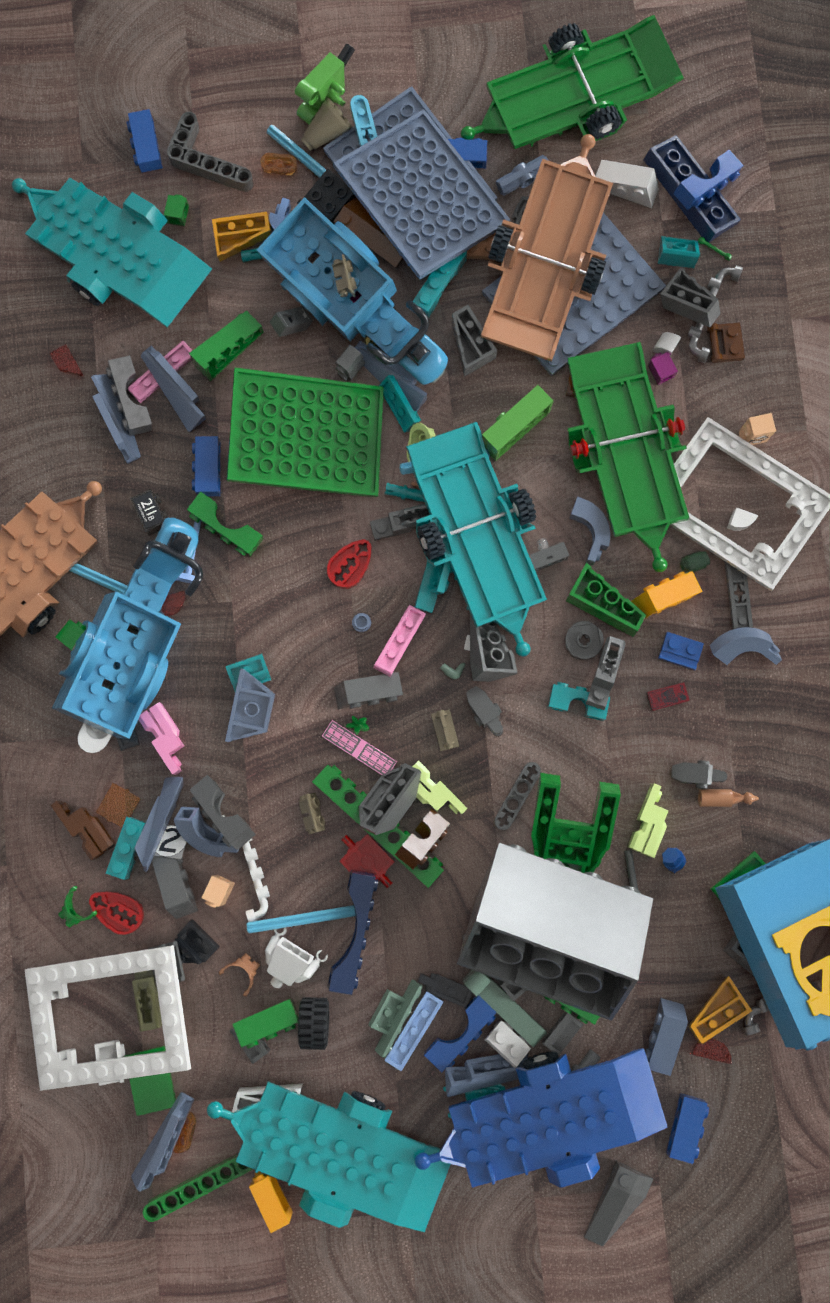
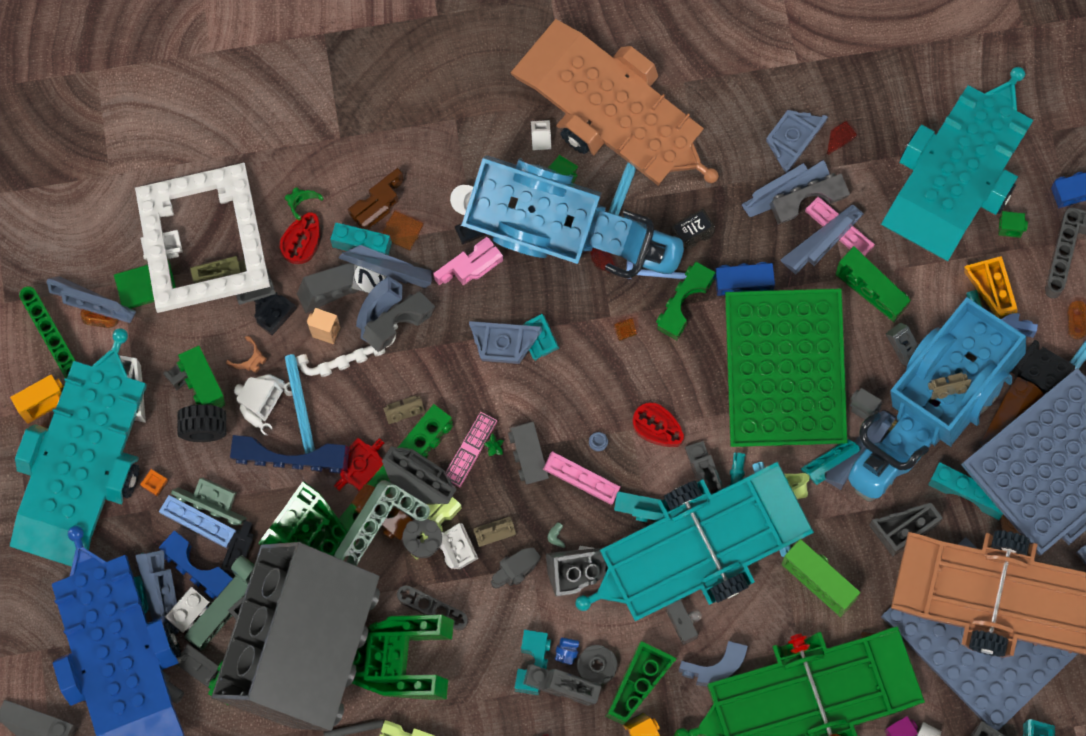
camera: 90 degrees right, 10 degrees down
(29, 655) = (541, 135): none -> white brick
(60, 405) = (793, 136): none -> sand blue wing
(247, 587) = (625, 329): none -> clear orange slope
(369, 1076) = (154, 482): none -> orange plate
(433, 847) = (376, 519): none -> sand green beam
(435, 916) = (307, 521): none -> green wedge
(459, 768) = (457, 547): none -> white bracket
(460, 793) = (430, 545): none -> dark grey plate
(569, 667) = (567, 651): none -> blue piece

